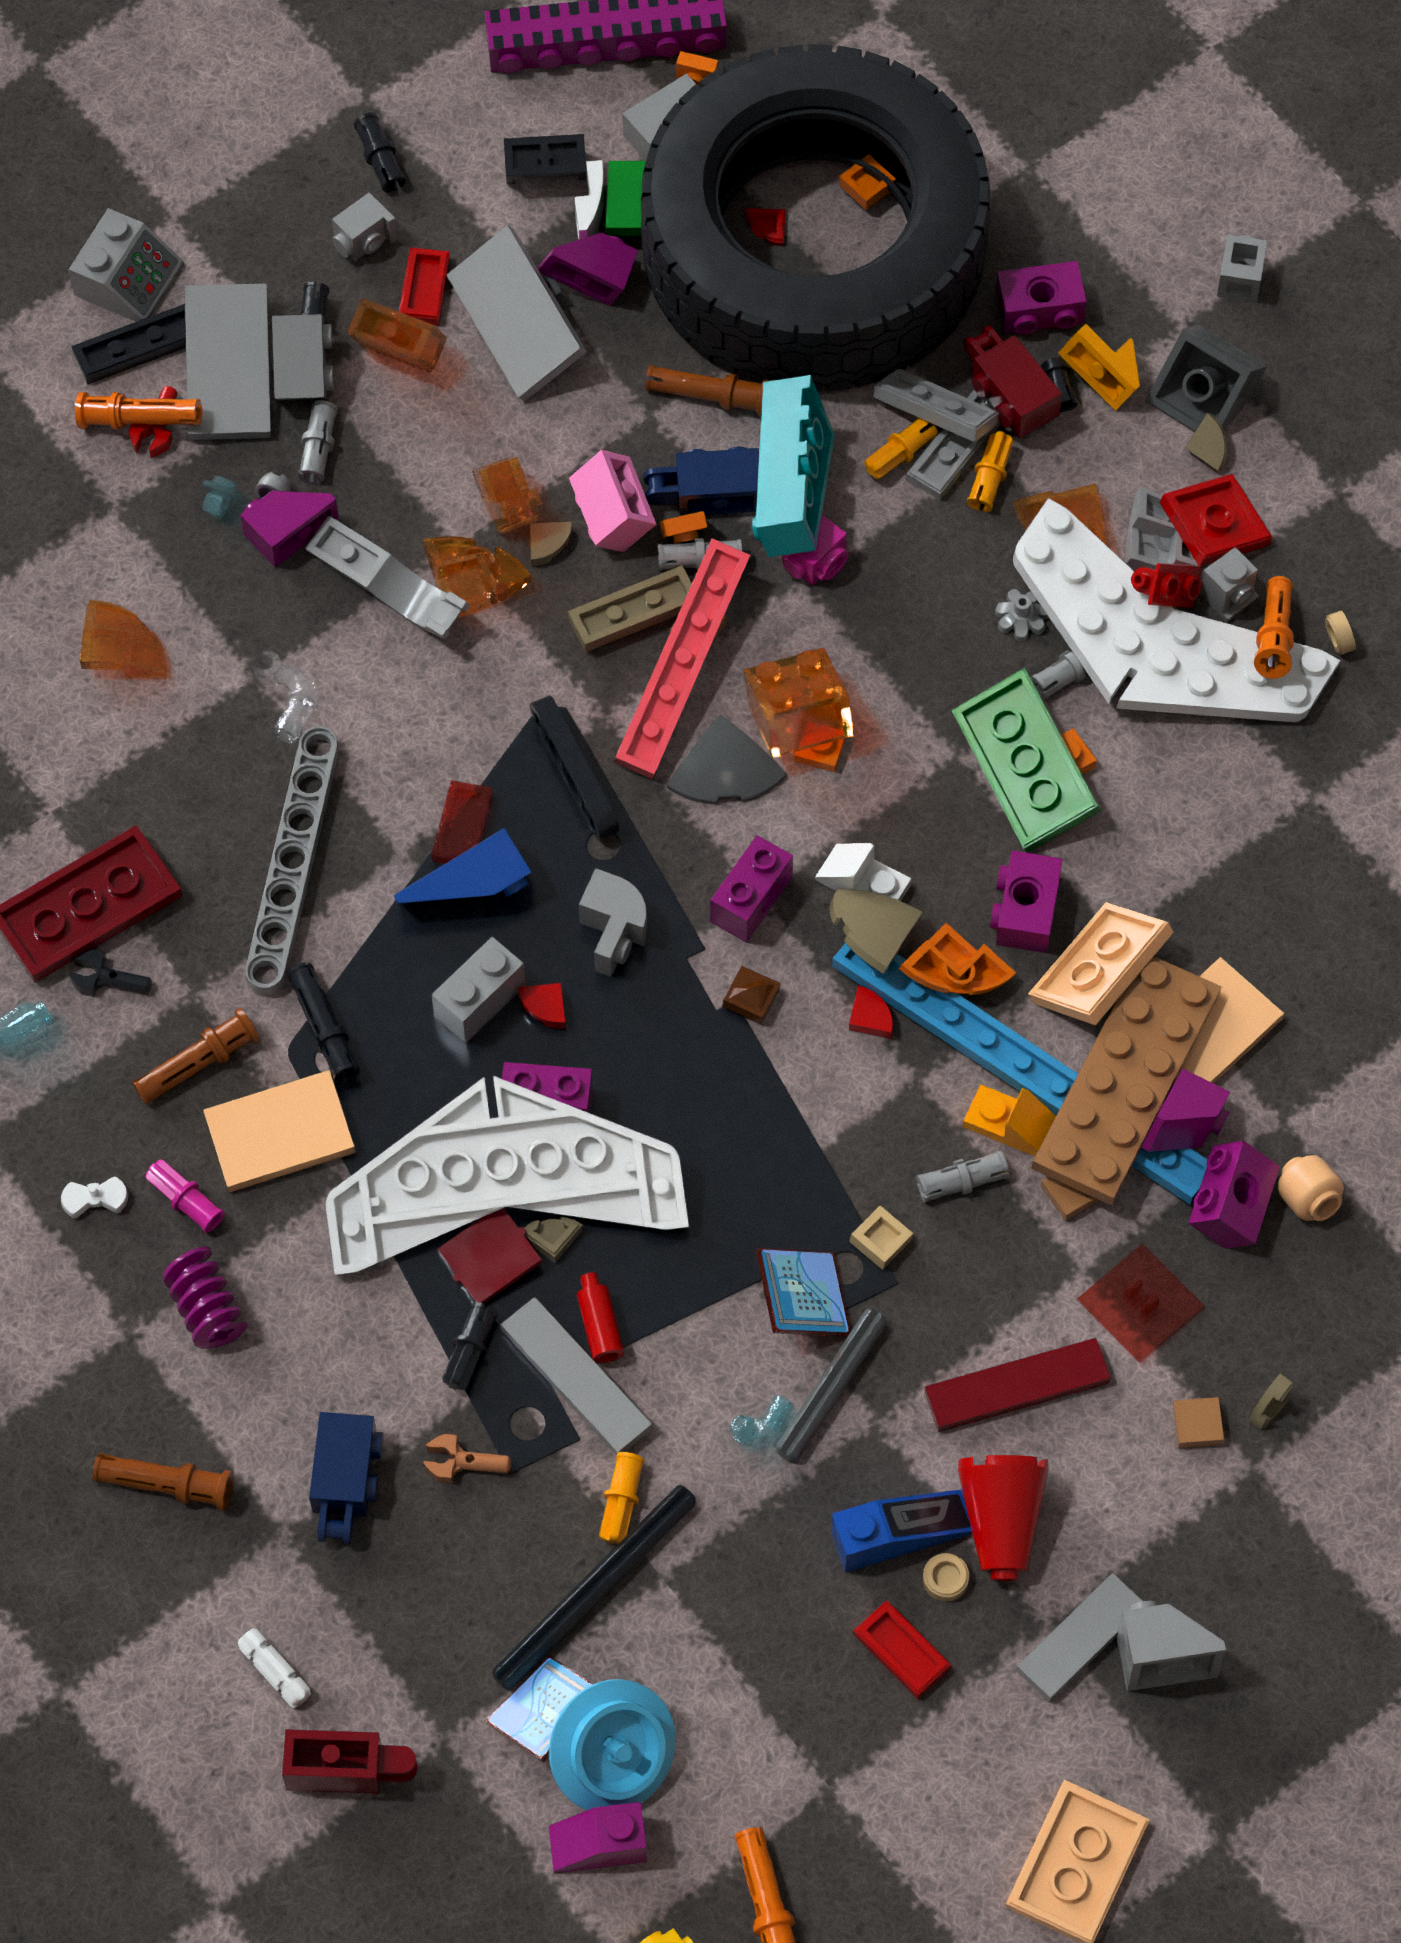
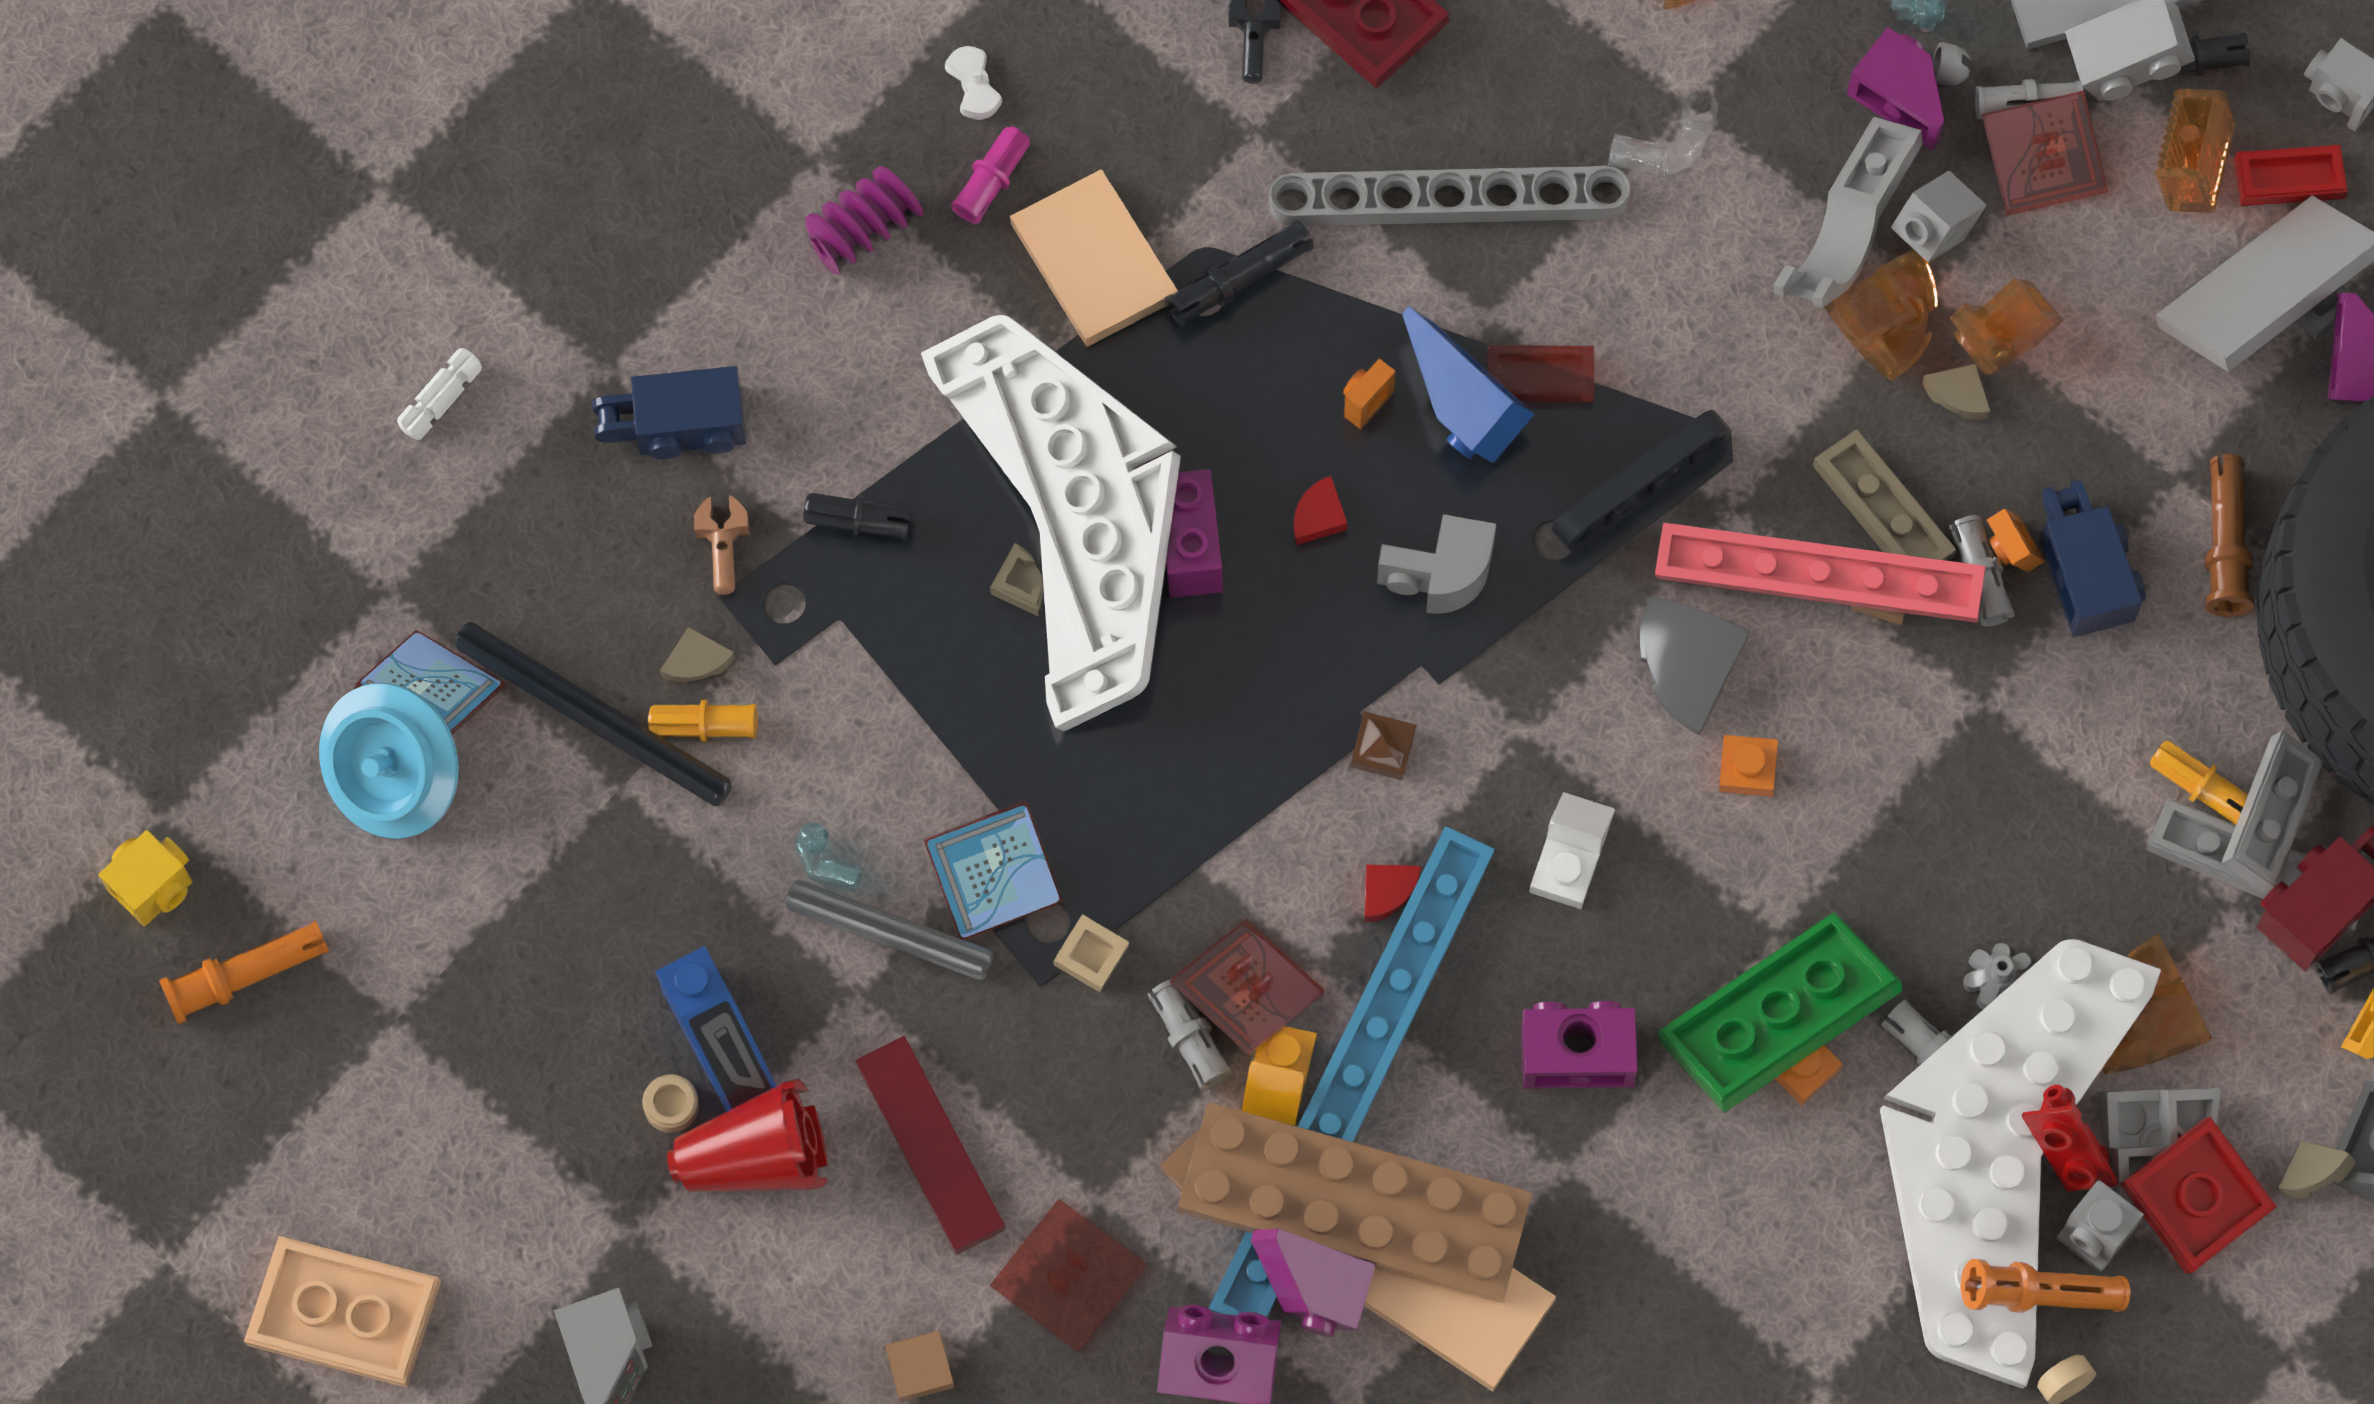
camera: 80 degrees right, 5 degrees up
(184, 1482) = (639, 251): dark orange pin -> none
(214, 1046) = (1183, 161): dark orange pin -> none
(343, 1761) = (329, 480): dark red brick -> none
(366, 440) = (2045, 153): none -> clear red piece
(406, 517) = (1938, 216): none -> light grey brick
(452, 943) = (1368, 392): none -> orange plate
(478, 989) = (1313, 430): light grey brick -> none
(490, 1255) = (979, 517): dark red piece -> none
(563, 1497) = (696, 658): none -> dark tan tile
(576, 1376) = (846, 642): light grey tile -> none
(599, 1320) = (920, 651): red cylinder -> none
(599, 1838) = (288, 779): magenta slope -> none
(612, 501) = (2023, 447): bright pink brick -> none
(751, 888) = (1519, 714): magenta brick -> none
(792, 466) = (2115, 643): wedge -> none
(798, 702) = (1785, 717): clear orange brick -> none
(825, 560) = (2021, 702): dark pink brick -> none
(873, 924) = (1496, 863): dark tan brick -> none
(902, 1649) = (573, 1069): red tile -> none
(933, 1126) = (1247, 986): none -> clear red piece
(955, 966) = (1467, 971): orange brick -> none
(990, 471) = (2198, 900): light orange axle -> none
(1077, 1638) = (612, 1262): light grey tile -> none
(1100, 963) = (1507, 1146): light nougat tile -> none

